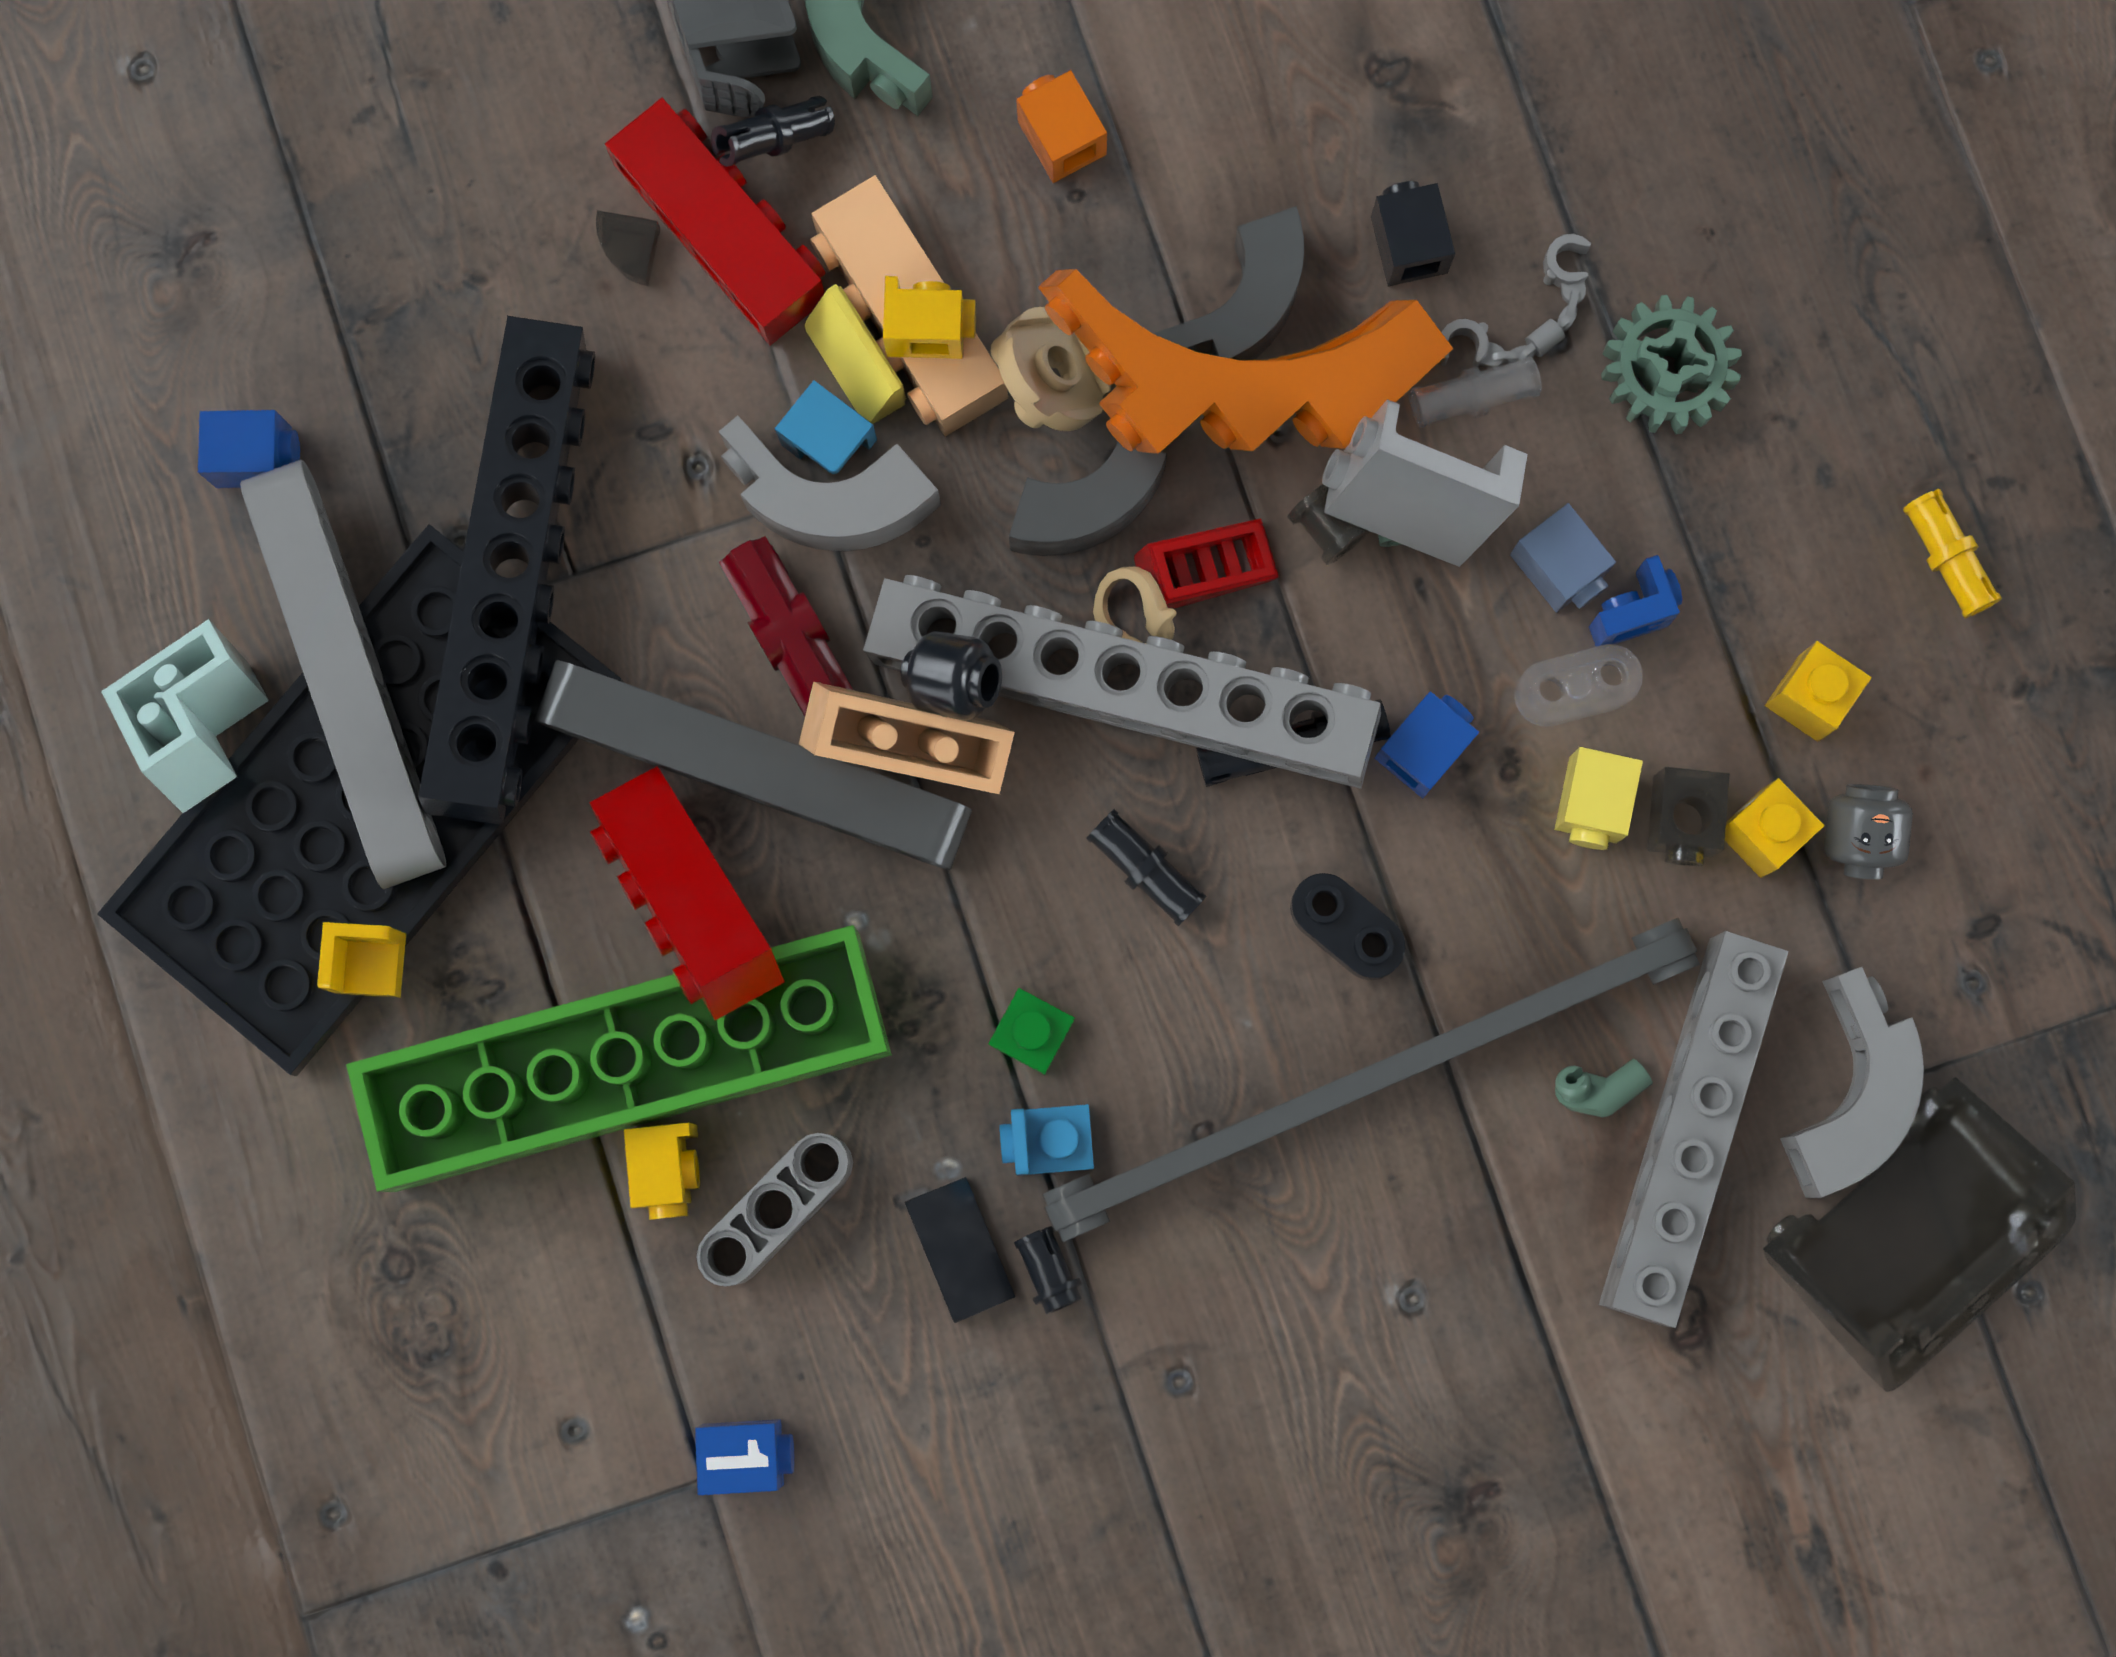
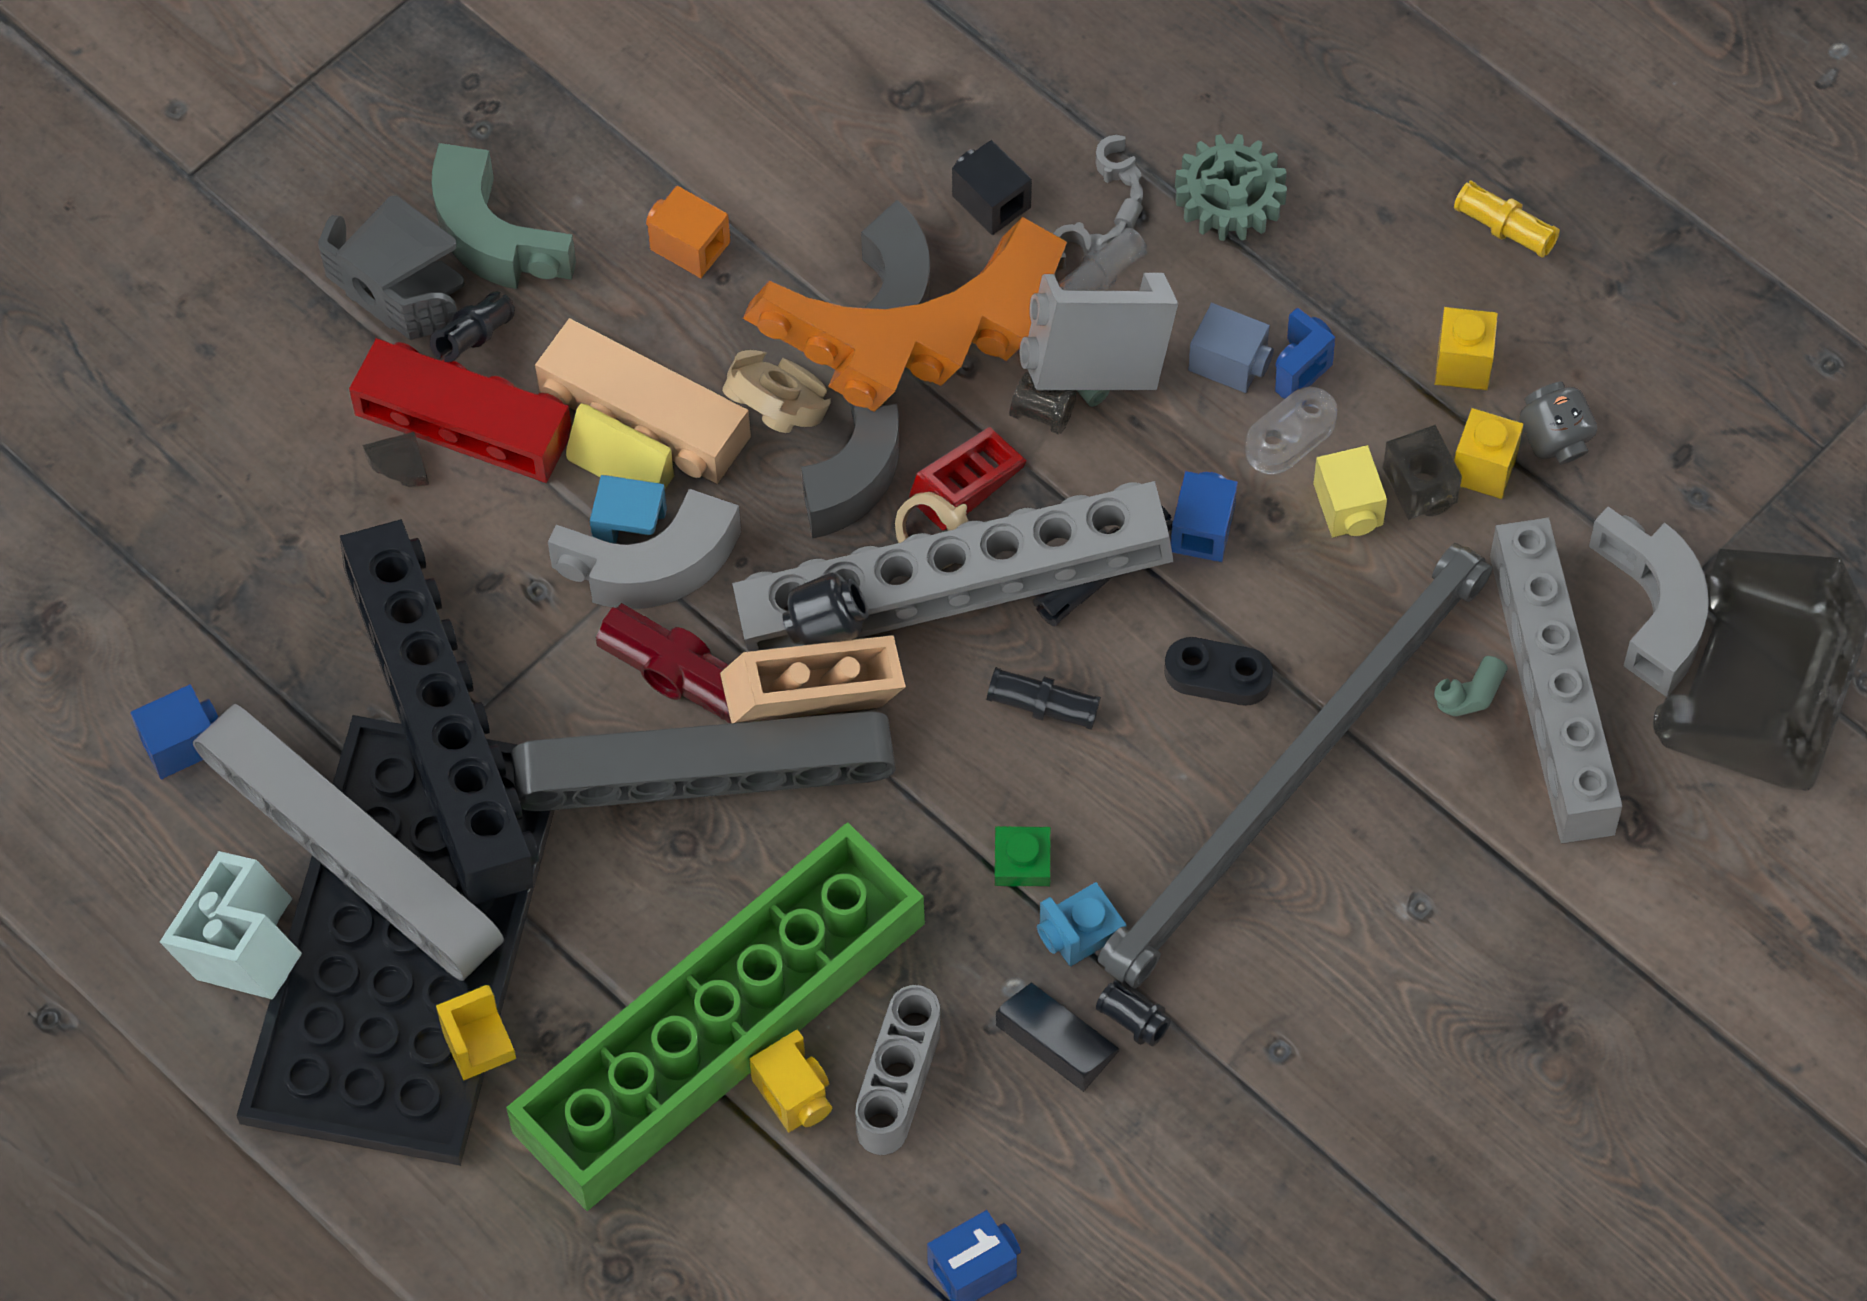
camera: 30 degrees left, 20 degrees down
(686, 893) = (705, 860): red brick -> none
(926, 320) = (667, 389): yellow brick -> none

